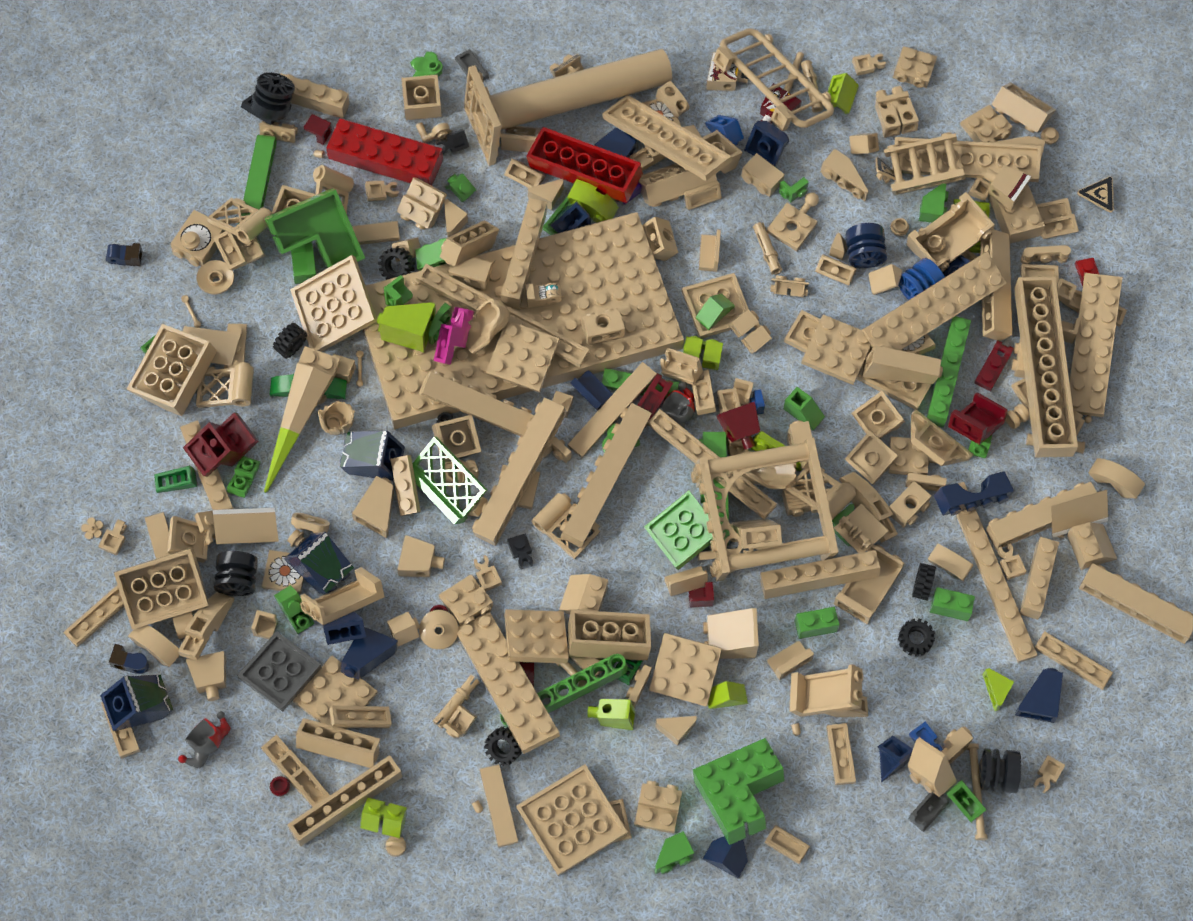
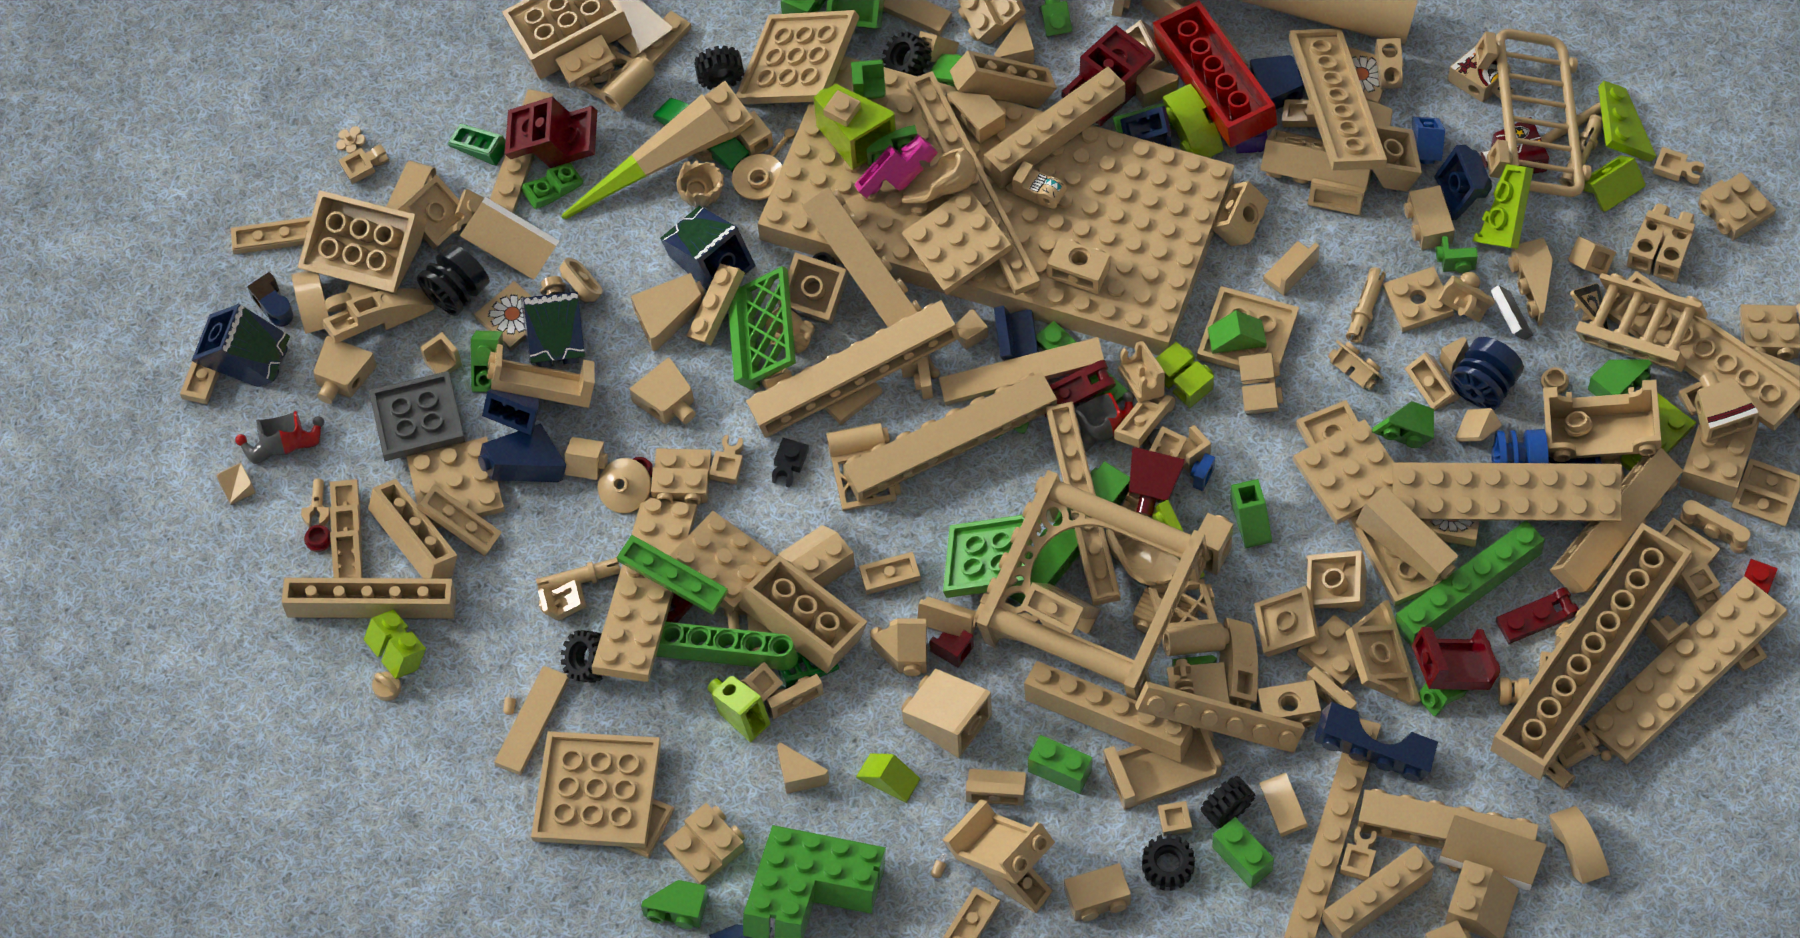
camera: 45 degrees right, 5 degrees down
(177, 633) = (337, 302): none -> tan tile
(201, 787) = (235, 483): none -> tan slope
(206, 387) = (586, 62): none -> tan bracket
(261, 766) = (316, 505): none -> tan bar
(362, 385) = (753, 169): none -> tan dish
(402, 319) = (842, 108): none -> tan plate
(518, 190) = (1119, 53): none -> dark red bracket
(521, 663) = (672, 574): none -> bright green plate
(618, 689) = (762, 681): none -> tan panel
(632, 577) = (889, 573): none -> tan plate
(678, 615) = (903, 645): none -> tan slope
(685, 669) = (860, 711): tan plate -> none
(807, 146) = (1506, 216): none -> lime wing
(819, 210) = (1465, 299): none -> tan hips
(821, 57) = (1622, 124): none -> lime wing
(847, 302) = (1408, 425): none -> bright green slope
(851, 204) = (1511, 312): none -> tile
(886, 536) = (1219, 717): none -> tan plate
(893, 681) = (1097, 892): none -> tan brick
(899, 610) = (1174, 818): none -> tan plate

